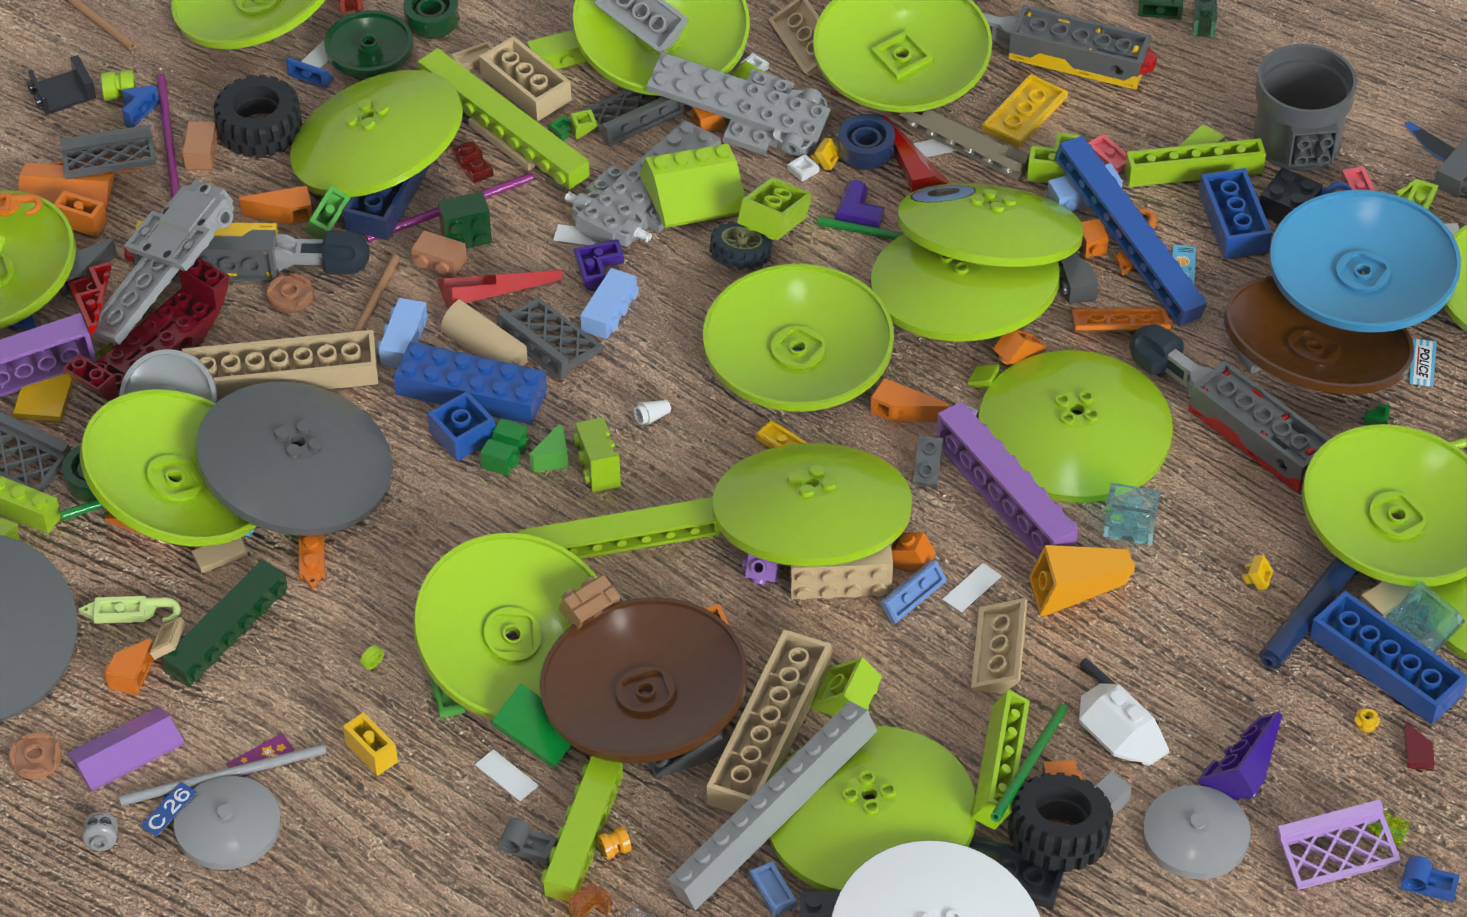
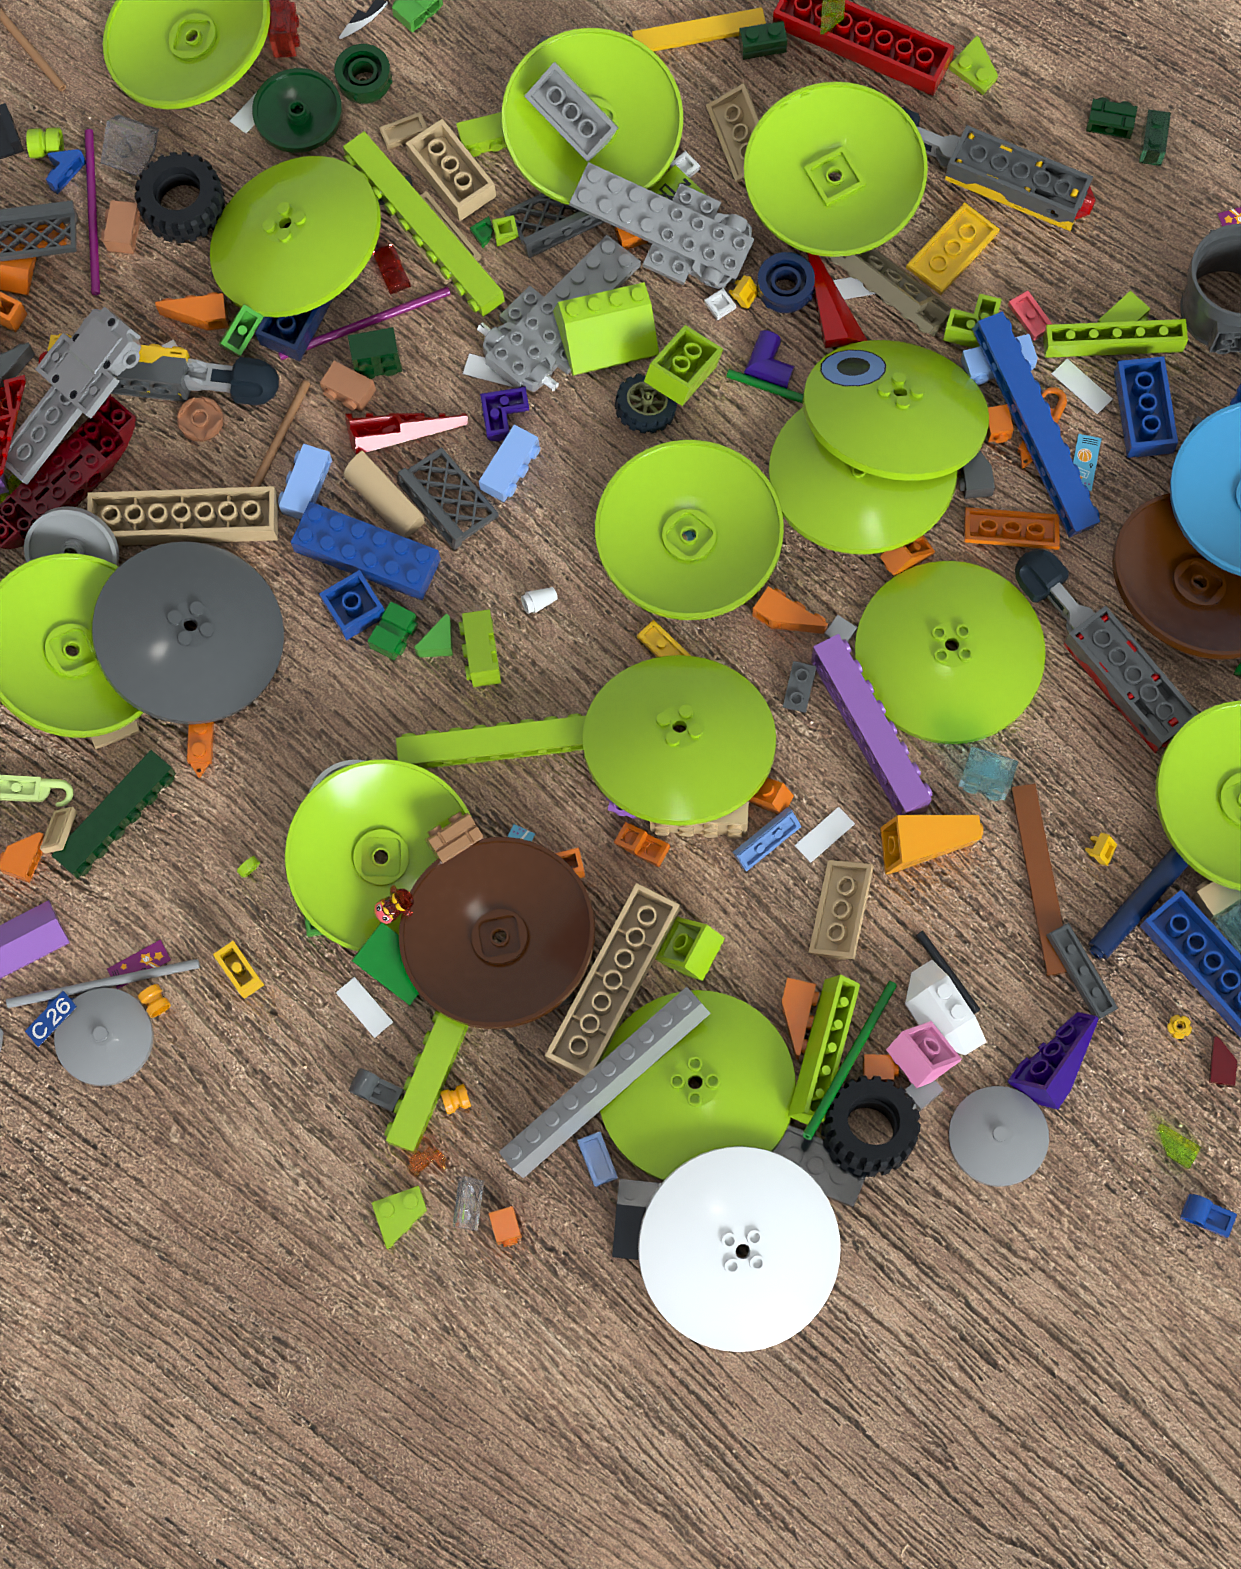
camera: 10 degrees right, 25 degrees up
(201, 82) = (128, 144): none -> clear slope
(281, 783) = (154, 1000): none -> light orange wheel
(308, 73) = (236, 139): blue slope -> none
(529, 666) = (390, 908): none -> clear red animal
(780, 608) = (642, 844): none -> orange slope
(965, 735) = (796, 1007): none -> orange slope
(984, 376) = (867, 584): lime slope -> none
(1103, 752) = (923, 1054): none -> bright pink slope
(1169, 208) = (1082, 386): none -> white sticker
(1201, 607) = (1038, 871): none -> dark orange tile
(1257, 677) = (1082, 971): none -> dark grey tile
(1286, 193) = (1204, 390): black brick -> none
(1326, 826) = (1127, 1147): lavender fence -> none

